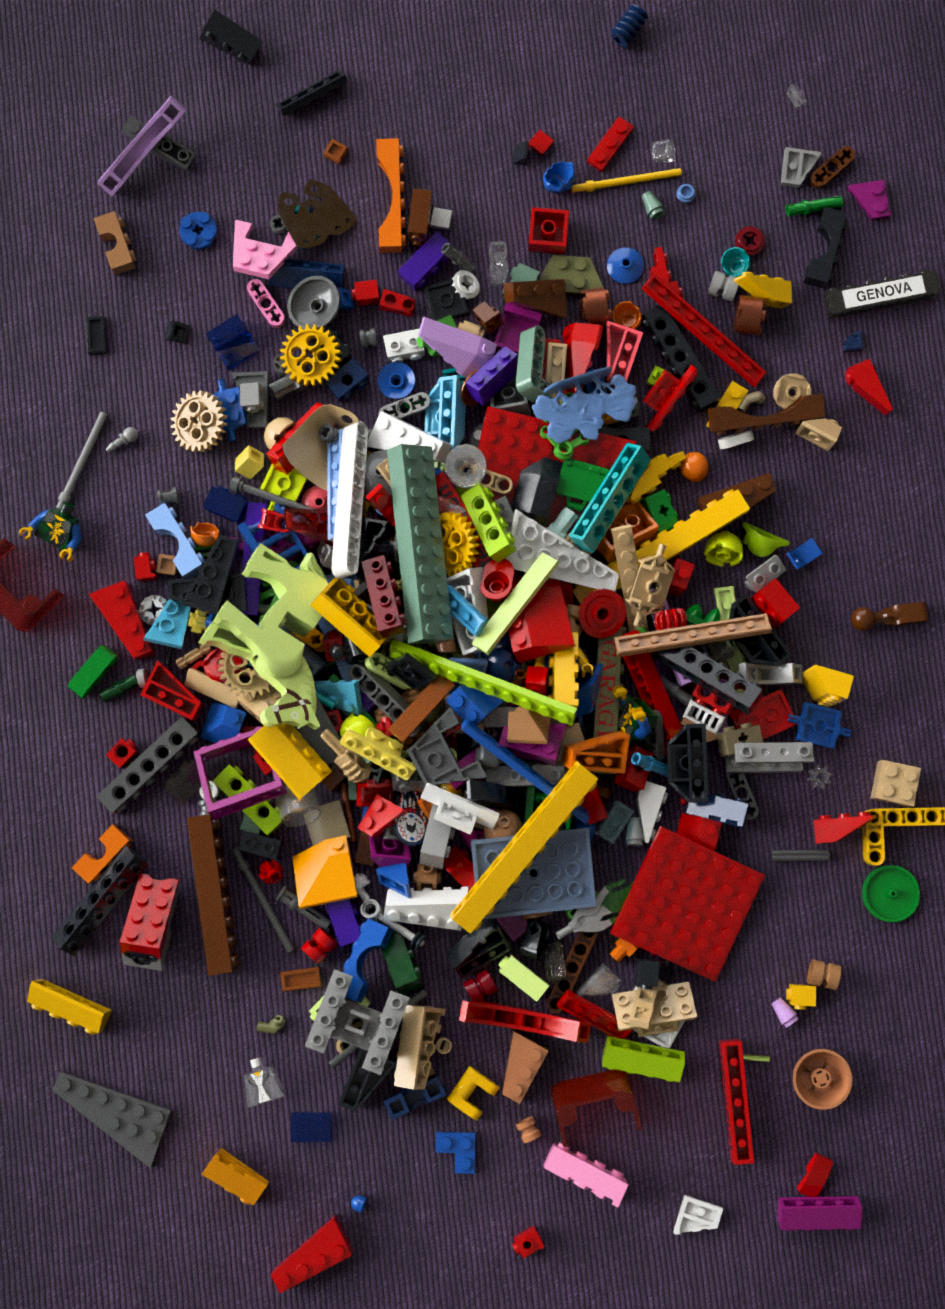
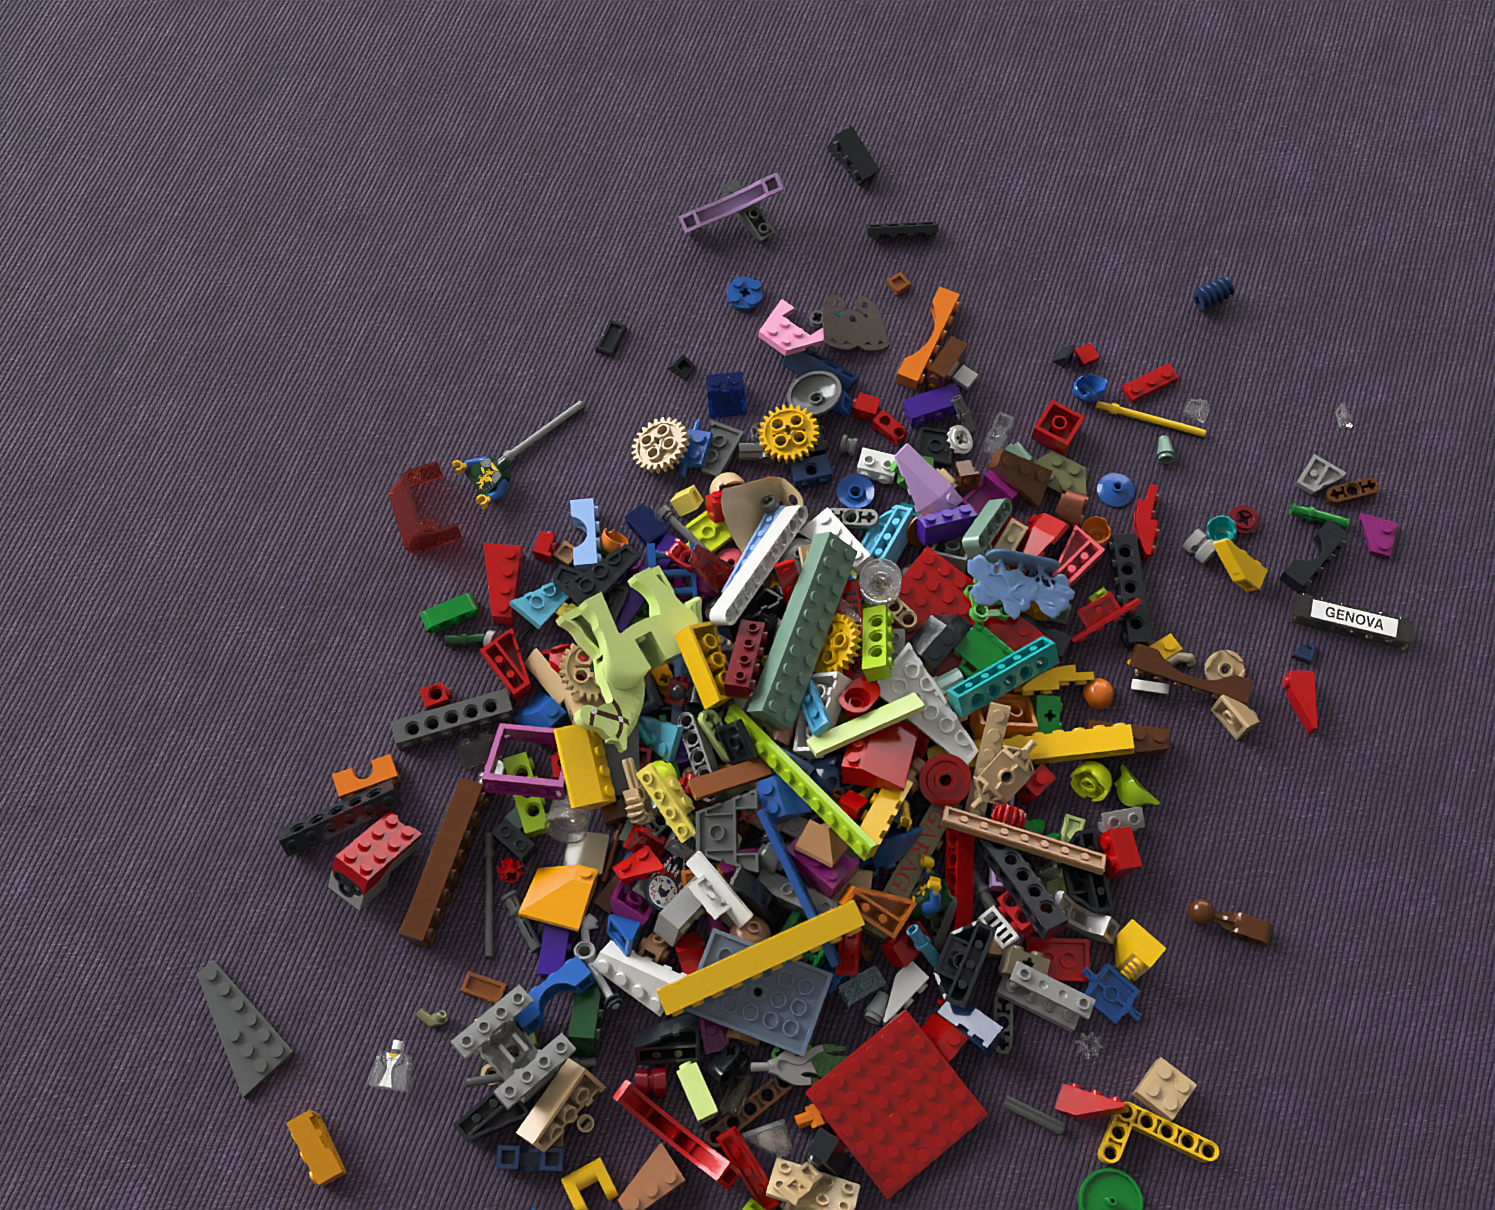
camera: 25 degrees right, 15 degrees down
(68, 1005) = (256, 900): yellow slope -> none
(119, 258) = (667, 285): medium nougat arch -> none
(129, 435) = (594, 430): light grey bar -> none
(147, 603) = (530, 580): white gear -> none
(168, 496) = (600, 496): dark grey bush -> none
(193, 656) = (546, 642): tan axle -> none
(252, 397) = (718, 445): light grey brick -> none
(277, 311) = (775, 370): bright pink beam -> none
(310, 1126) = (416, 1138): clear blue plate -> none
(319, 945) = (518, 963): red wheel -> none
(685, 193) = (1201, 453): medium blue plate -> none
(703, 330) = (1164, 575): red tile -> none
(749, 315) = (1214, 581): copper brick -> none
(804, 553) = (1170, 822): blue bracket -> none

